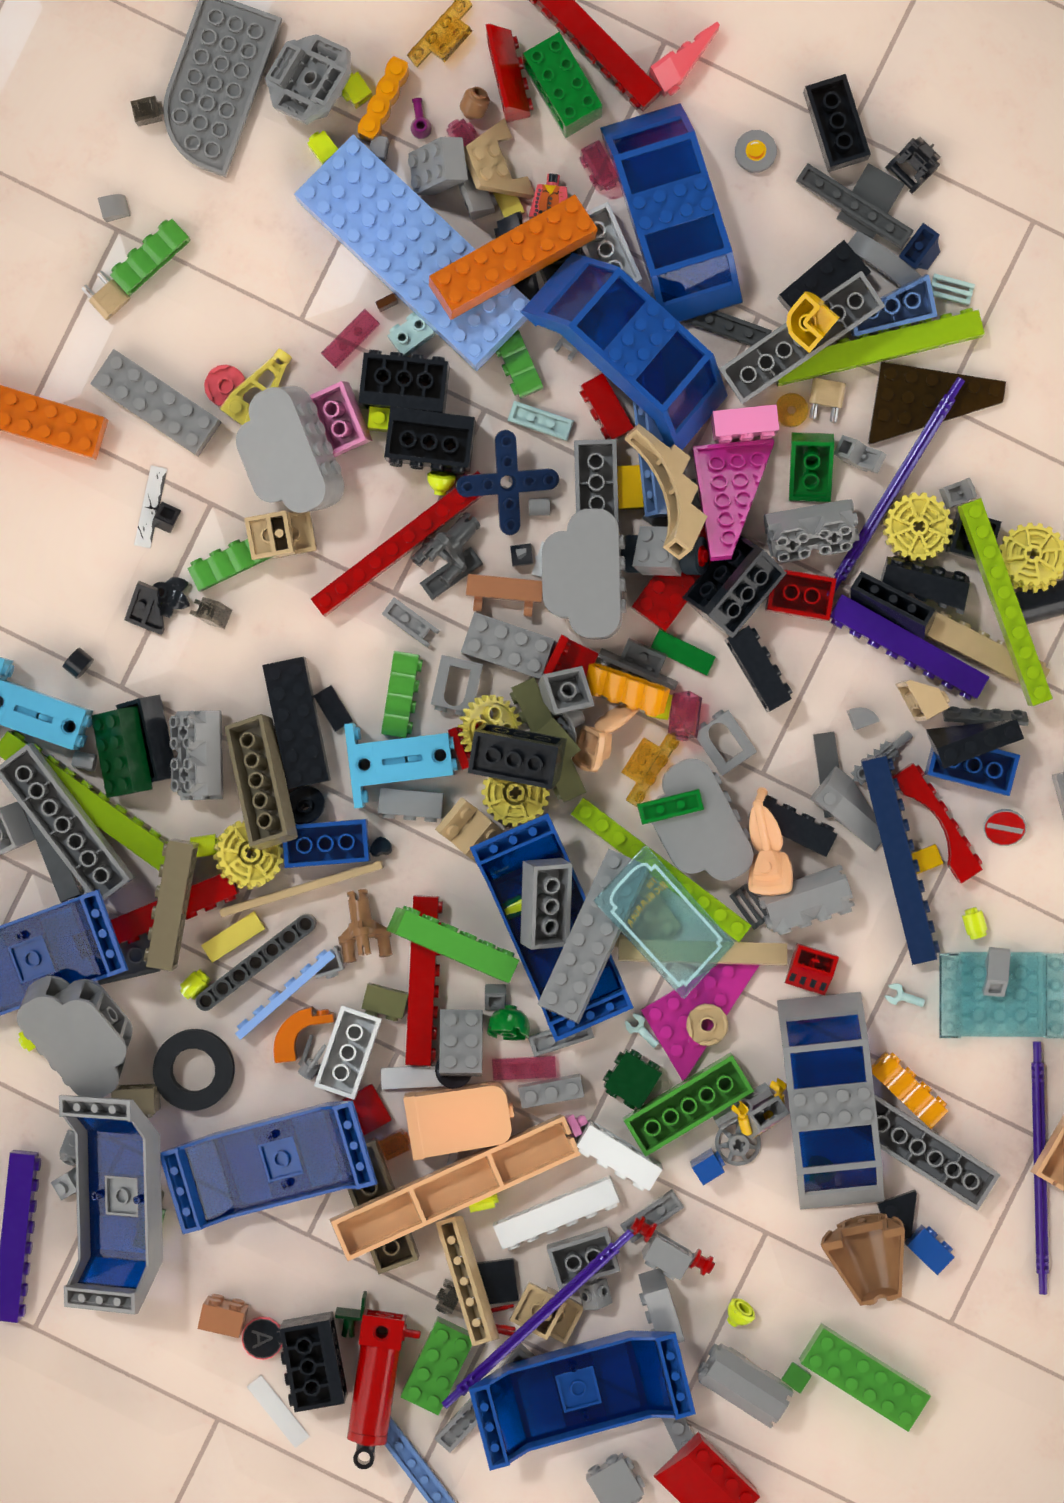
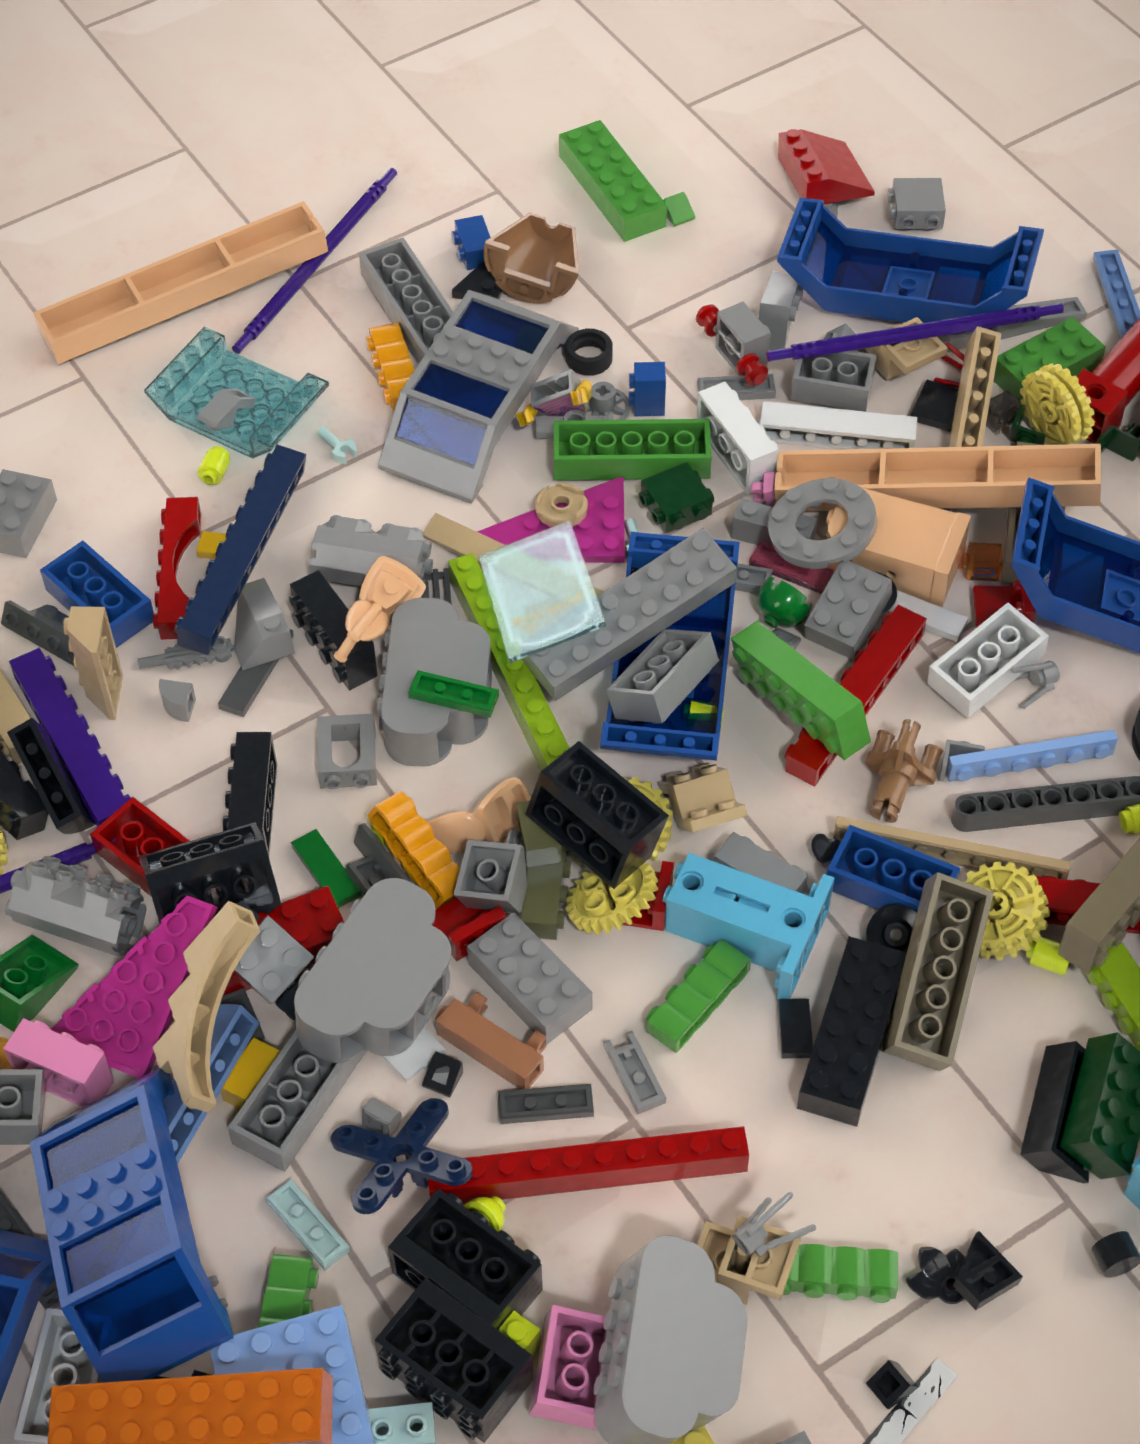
camera: 155 degrees left, 35 degrees down
(199, 762) = (998, 1062): light grey brick -> none
(212, 612) = (894, 1217): clear smoke brick -> none
(233, 936) = (1069, 846): light yellow tile -> none
(276, 539) = (752, 1235): none -> light grey plant
(286, 1037) = (1039, 720): orange arch -> none
(385, 1001) = (913, 694): olive brick -> none
(404, 1307) = (1057, 405): none -> light yellow piece
(419, 1277) = (1023, 434): none -> dark green bracket
(441, 680) = (612, 997): light grey panel -> none
(449, 547) = (528, 1122): dark grey wheel -> none
(480, 1095) = (813, 553): none -> light grey plate
(606, 407) = (214, 1186): red brick -> none
(646, 765) = (452, 778): clear yellow bracket -> none
(684, 715) = (372, 788): clear pink brick -> none
(740, 1312) = (699, 274): neon yellow brick -> none
(744, 1384) = (734, 214): light grey brick -> none
(776, 1203) = (589, 365): none -> black tyre
(811, 969) = (409, 502): red slope -> none
(968, 741) = (57, 589): black wedge -> none
(1004, 827) = (112, 528): red piece -> none

